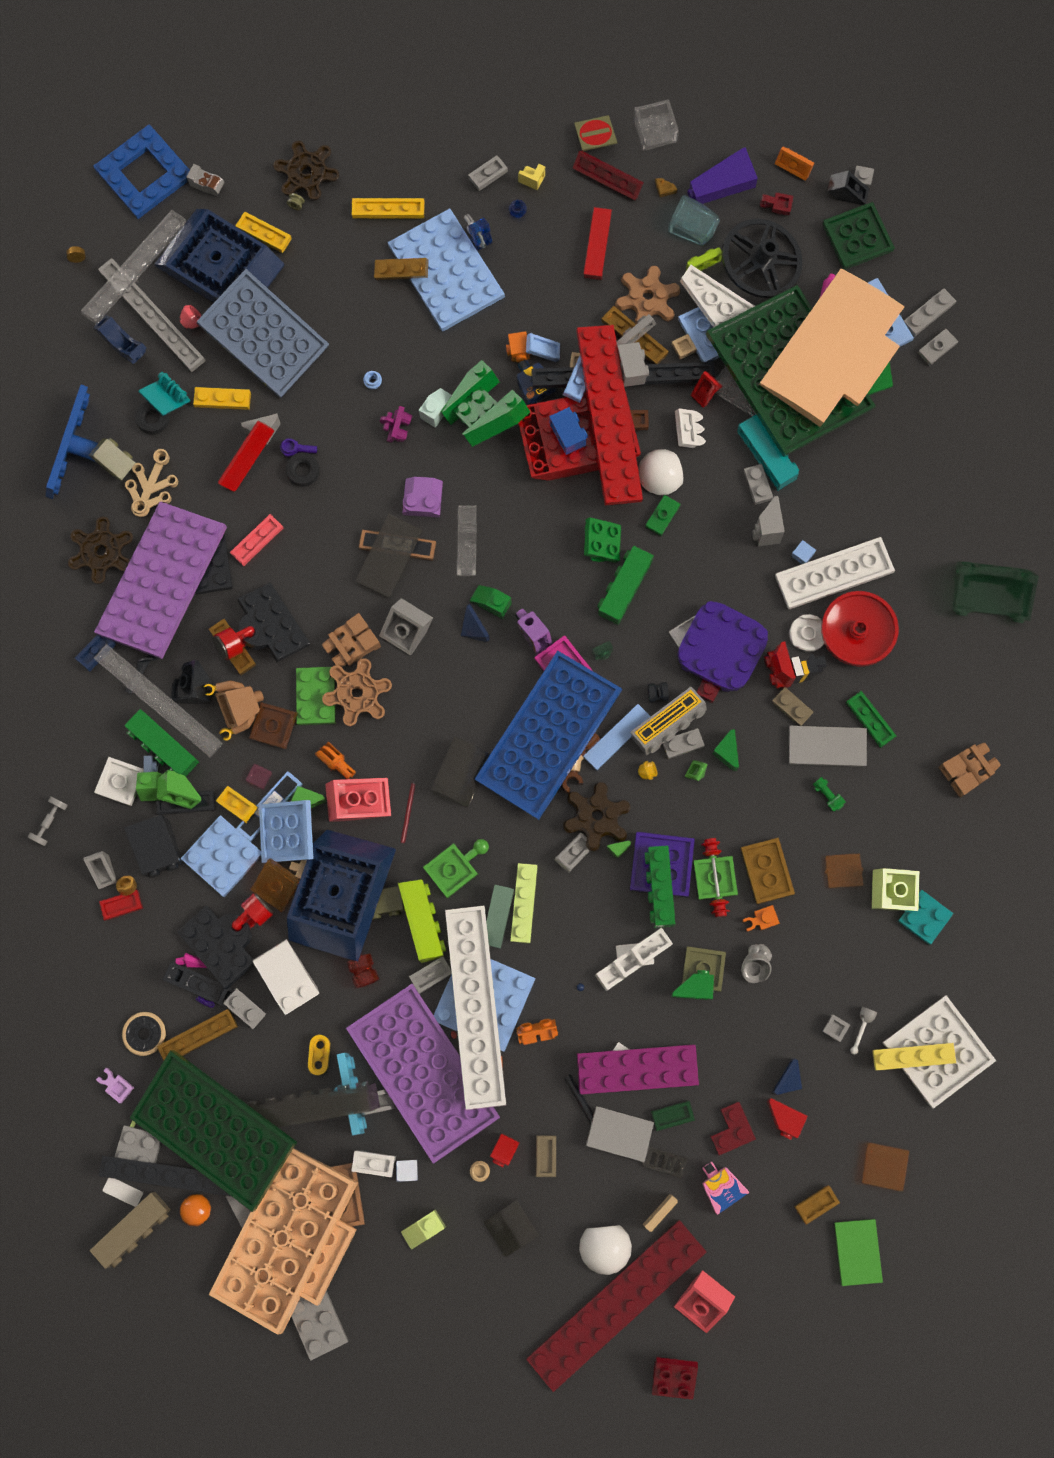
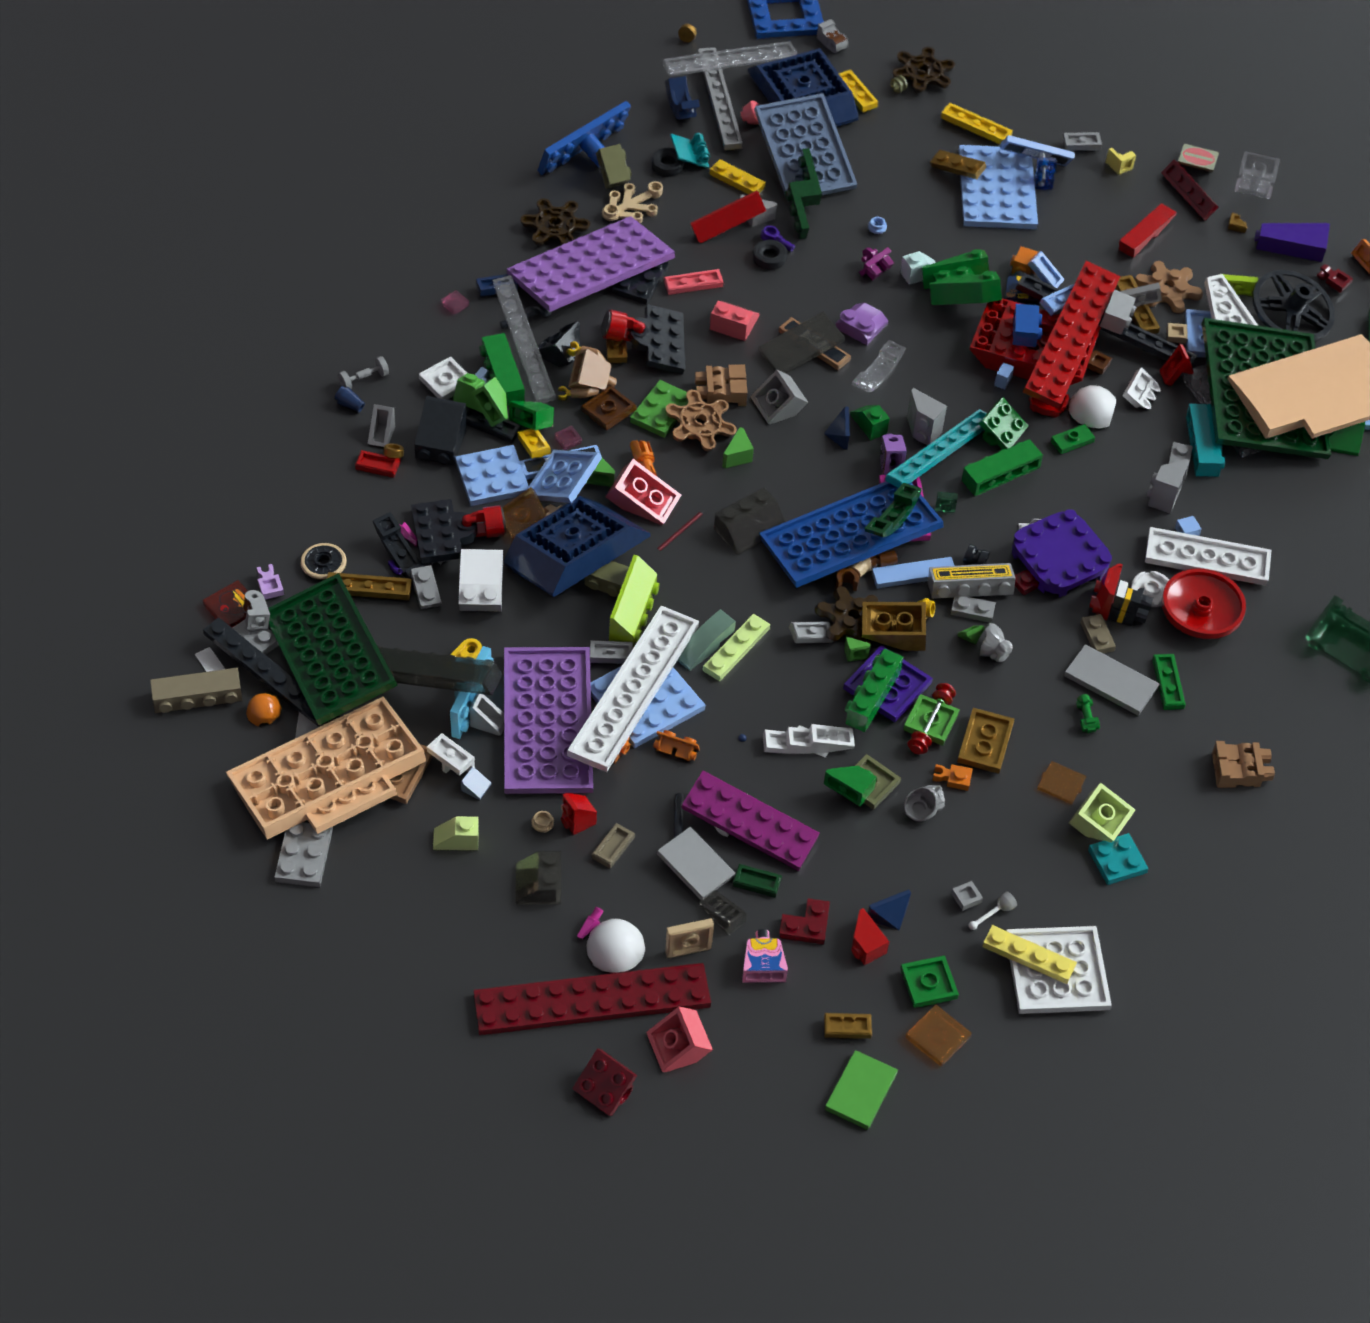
camera: 25 degrees right, 25 degrees down
(53, 855) = (349, 399): none -> dark blue cone
(72, 691) = (455, 302): none -> clear pink tile
(100, 1125) = (228, 603): none -> clear red tile
(122, 1122) = (256, 609): none -> light grey leg
(216, 776) = (531, 414): none -> green slope
(293, 388) = (803, 193): none -> dark green bracket
(316, 561) = (732, 320): none -> coral slope
(363, 971) = (552, 614): clear red wheel -> none
(406, 702) = (739, 450): none -> bright green slope
(452, 869) = (692, 587): bright green plate -> none
(460, 213) = (1032, 150): none -> light blue tile
(518, 204) = (1092, 175): clear blue plate -> none
(537, 576) = (925, 417): none -> light grey slope
(568, 604) = (937, 450): none -> teal tile
(572, 484) = (1004, 376): none -> light blue piece
(573, 1239) = (590, 922): none -> dark pink bar
(577, 704) = (896, 513): none -> dark green slope
(636, 806) = (895, 624): none -> pearl gold slope
(693, 221) = (1245, 253): clear light blue slope -> none
(723, 774) = (995, 644): none -> light grey hair
(727, 751) = (1013, 627): green slope -> none
(853, 1125) = (929, 981): none -> green plate

